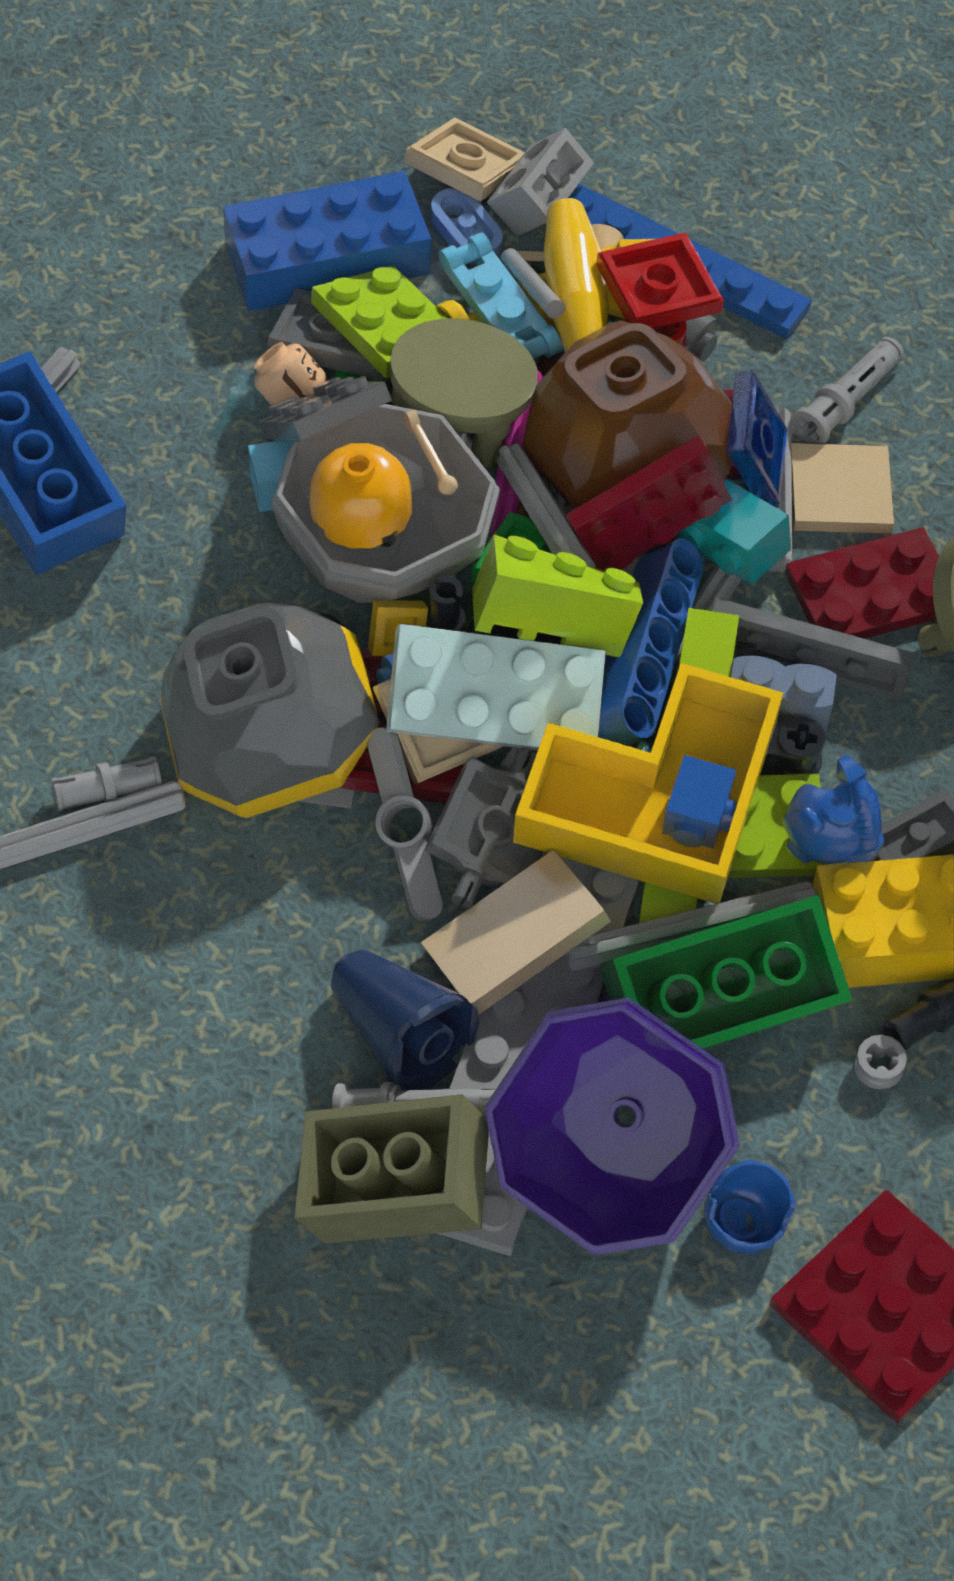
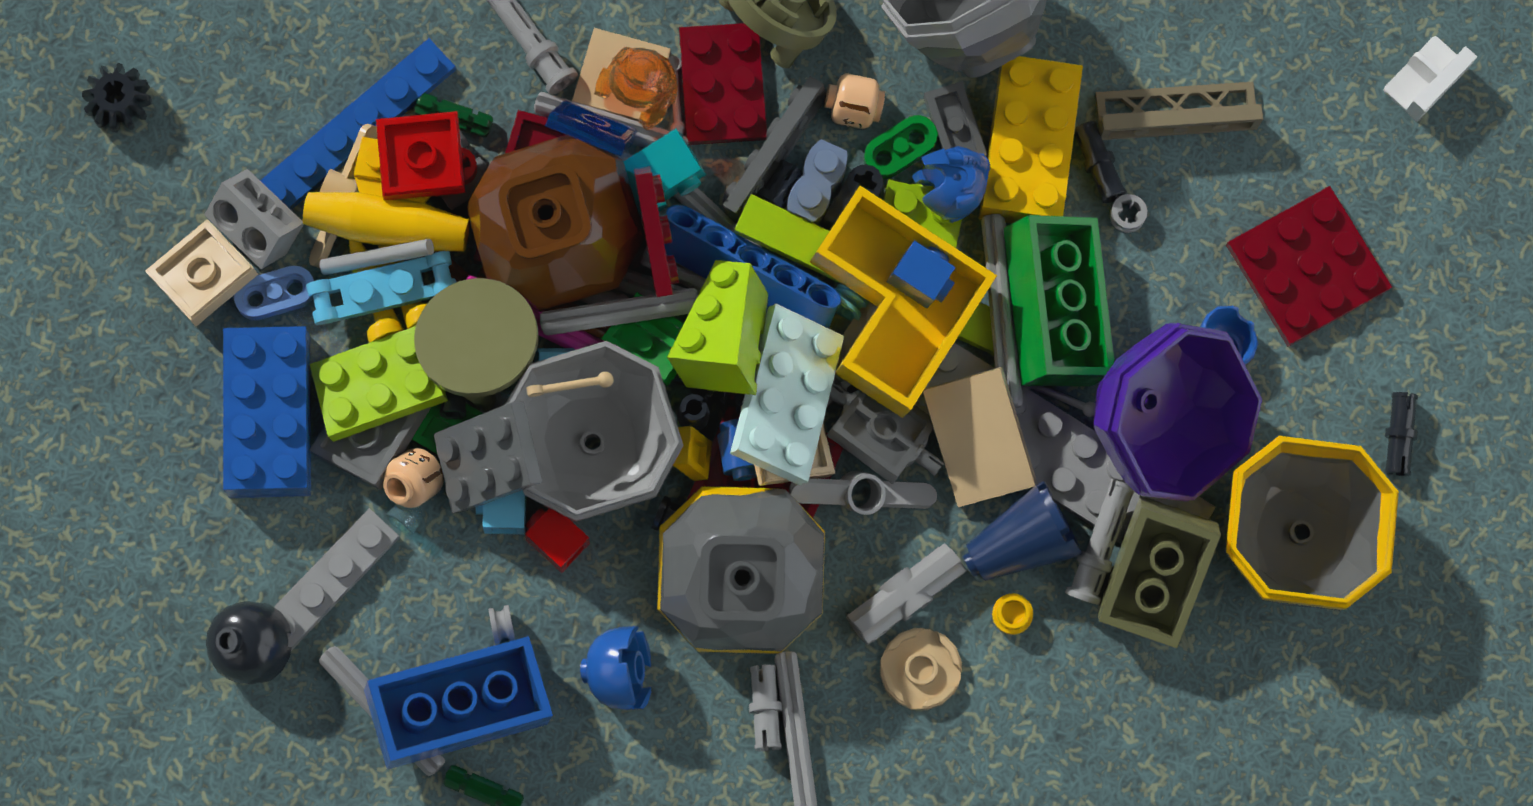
camera: 80 degrees left, 20 degrees up
(57, 268) = (249, 642): none -> black cylinder
(117, 610) = (617, 668): none -> blue cylinder
(143, 501) = (501, 624): none -> light grey bush
(151, 340) = (335, 574): none -> light grey plate
(203, 963) = (915, 681): none -> tan tile
(252, 533) = (556, 538): none -> red brick
(289, 902) = (905, 594): none -> light grey piece
(297, 1034) = (1012, 614): none -> yellow plate
(360, 495) = (604, 450): light orange cylinder -> none
(517, 1294) = (1338, 501): none -> dark grey rock
(634, 53) = (114, 113): none -> black gear
(691, 1474) = (1401, 434): none -> black pin
(730, 341) = (479, 124): none -> dark green axle
(801, 552) = (678, 124): none -> light grey hinge
(841, 488) = (640, 81): none -> clear orange helmet
(880, 775) = (898, 146): none -> green plate
(905, 720) = (855, 101): none -> light nougat head

